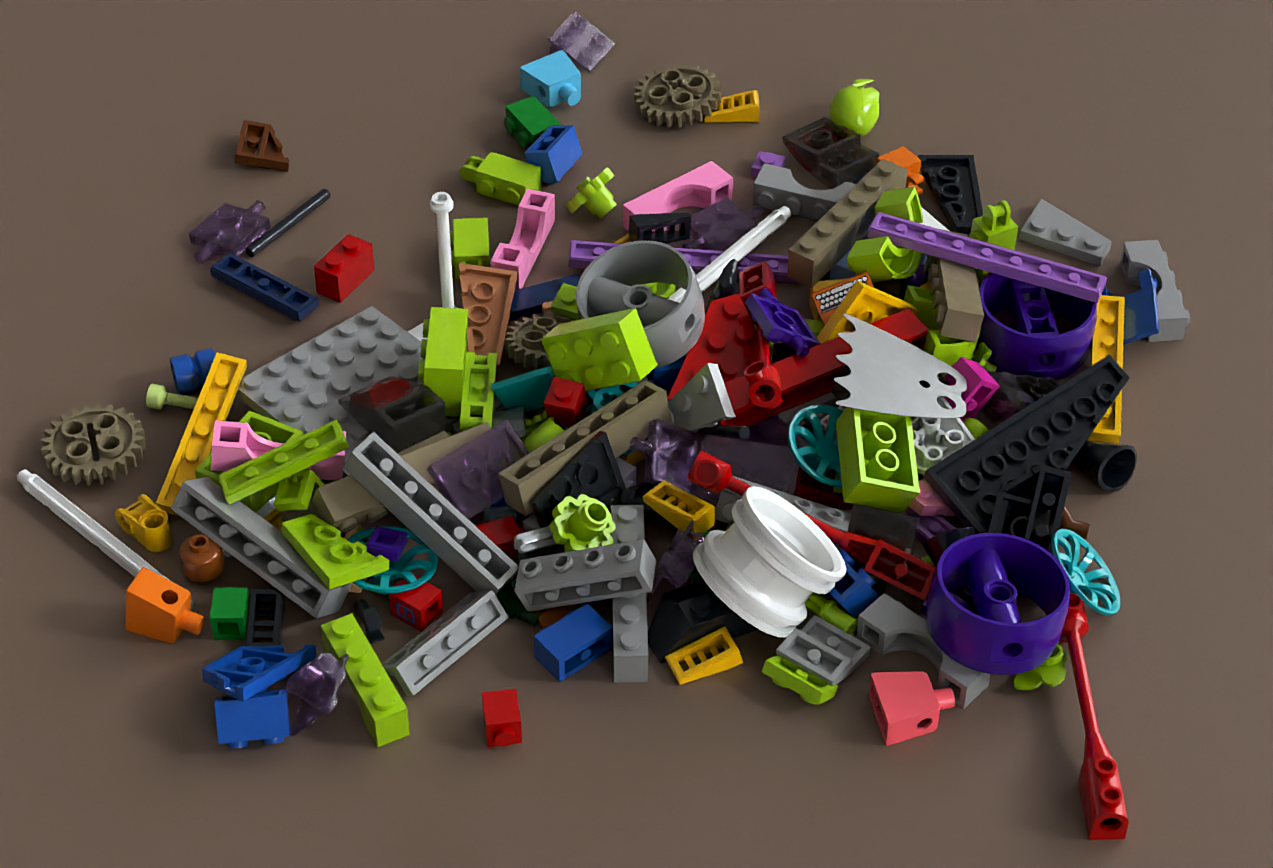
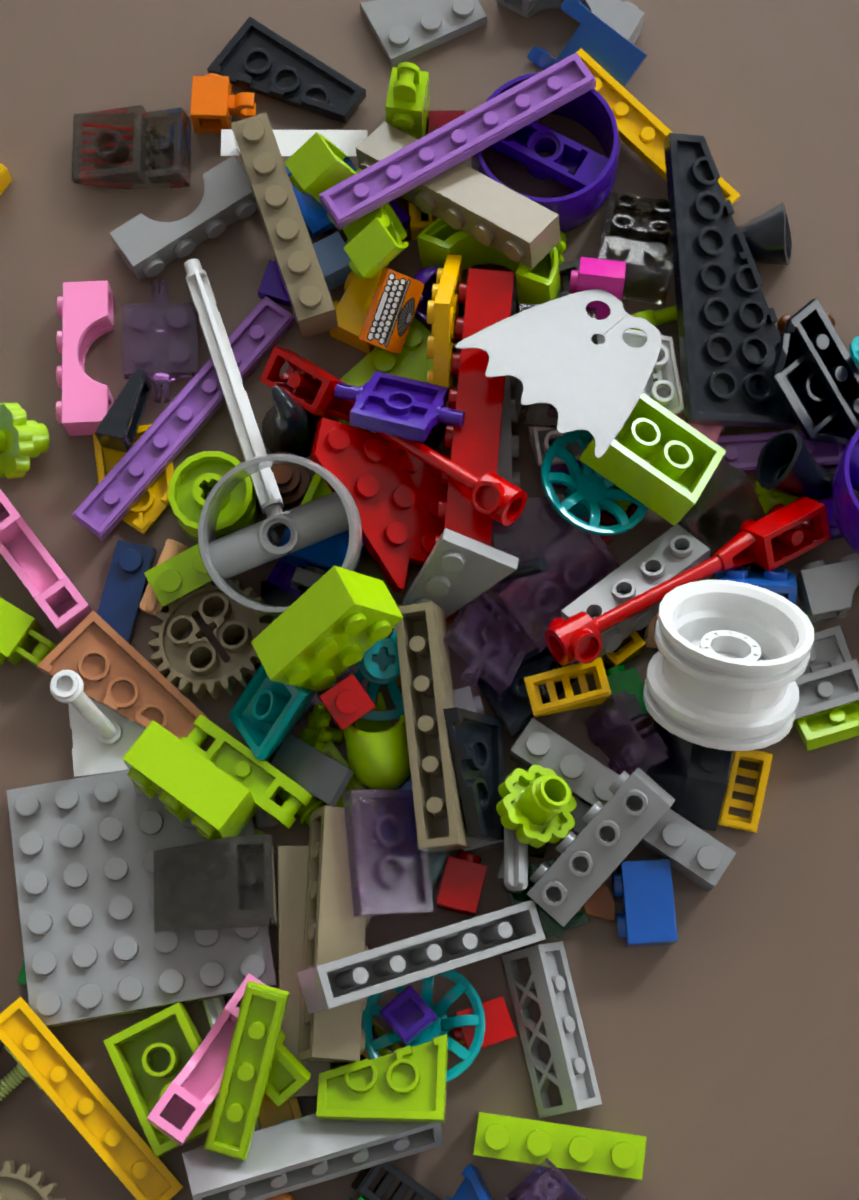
camera: 50 degrees left, 30 degrees up
(370, 620) = (481, 1089): black bar -> none
(501, 717) = (699, 1039): red brick -> none
(767, 158) = (94, 223): medium lavender plate -> none
(856, 107) = (92, 81): lime helmet -> none

